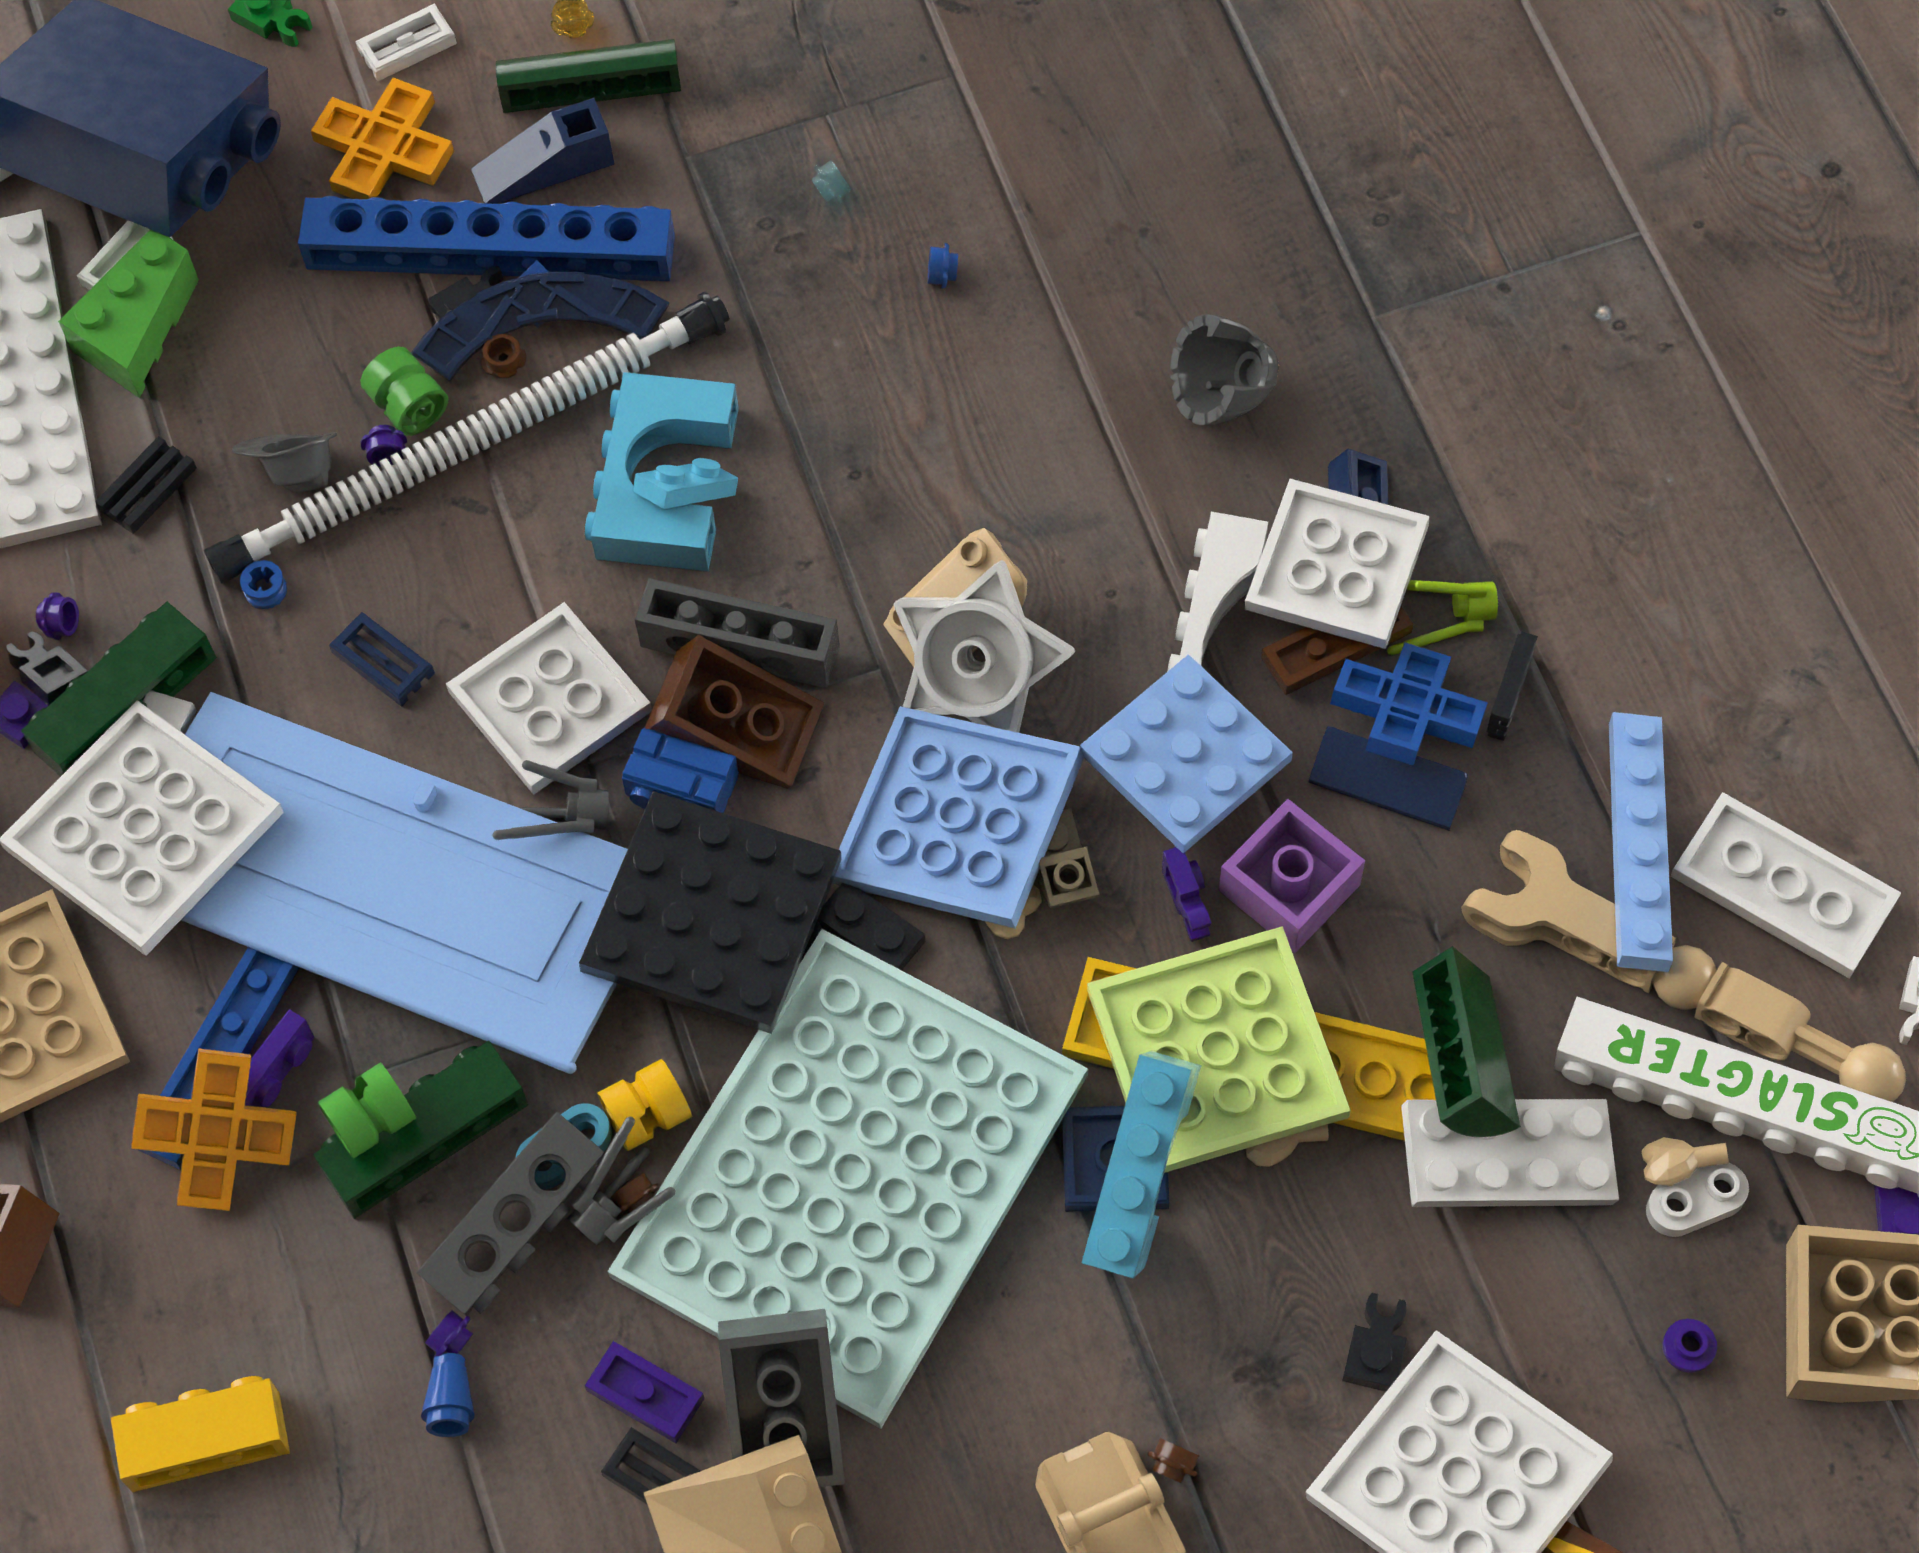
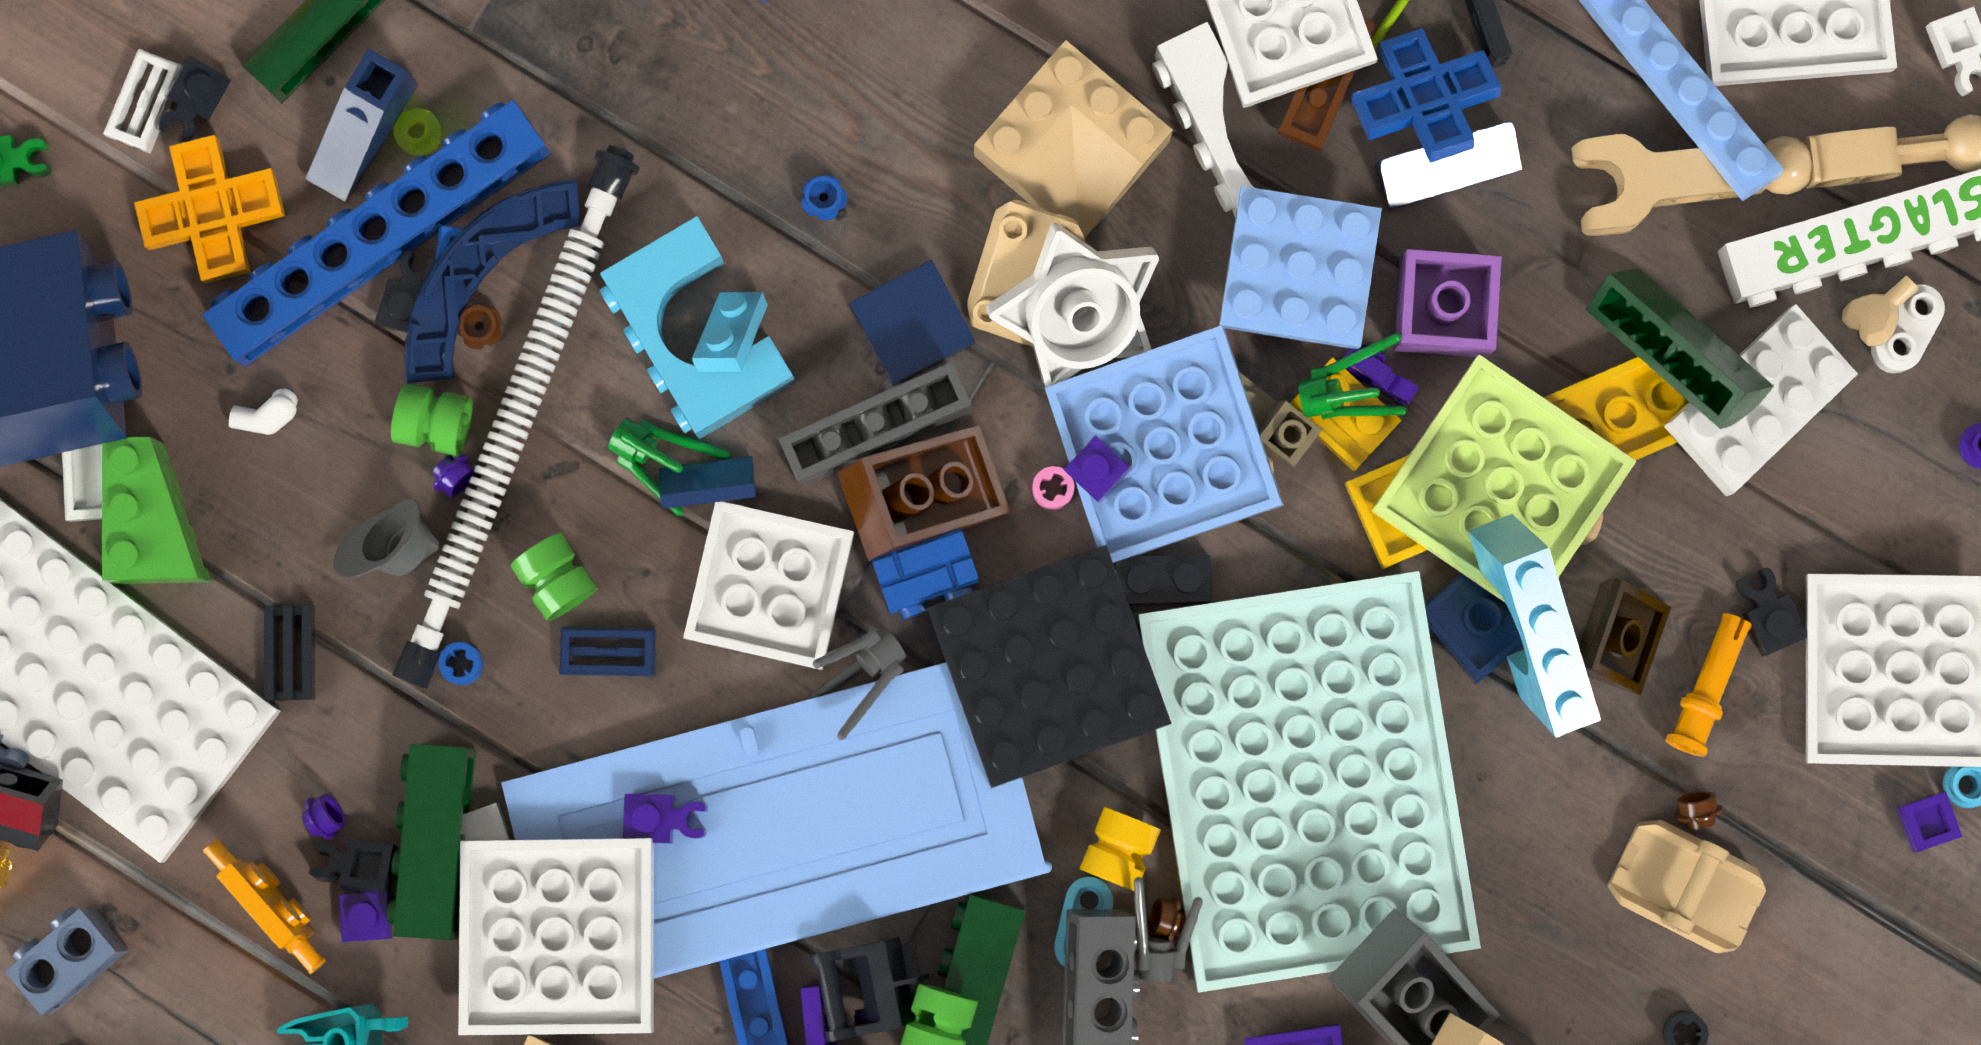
camera: 45 degrees left, 20 degrees up
(289, 310) = (269, 417): none -> white arm
(304, 800) = (656, 818): none -> dark purple plate
(366, 1040) = (888, 984): none -> black piece
(389, 567) = (554, 577): none -> bright green wheel
(445, 57) = (195, 92): none -> black plate
(543, 524) = (635, 443): none -> green plant
(569, 586) = (707, 482): none -> dark blue tile
(579, 183) = (427, 141): none -> clear neon green plate
(842, 585) = (912, 323): none -> dark blue tile
(846, 778) = (1059, 500): none -> bright pink bush
(849, 438) = (823, 185): none -> blue plate
(886, 792) = (1097, 469): none -> dark purple plate
(1084, 540) = (1072, 140): none -> tan slope
(1127, 867) = (1325, 395): none -> green plant
(1134, 910) = (1352, 436): none -> yellow plate
(1224, 1258) = (1622, 635): none -> dark brown slope
(1250, 1371) = (1702, 705): none -> light orange pin

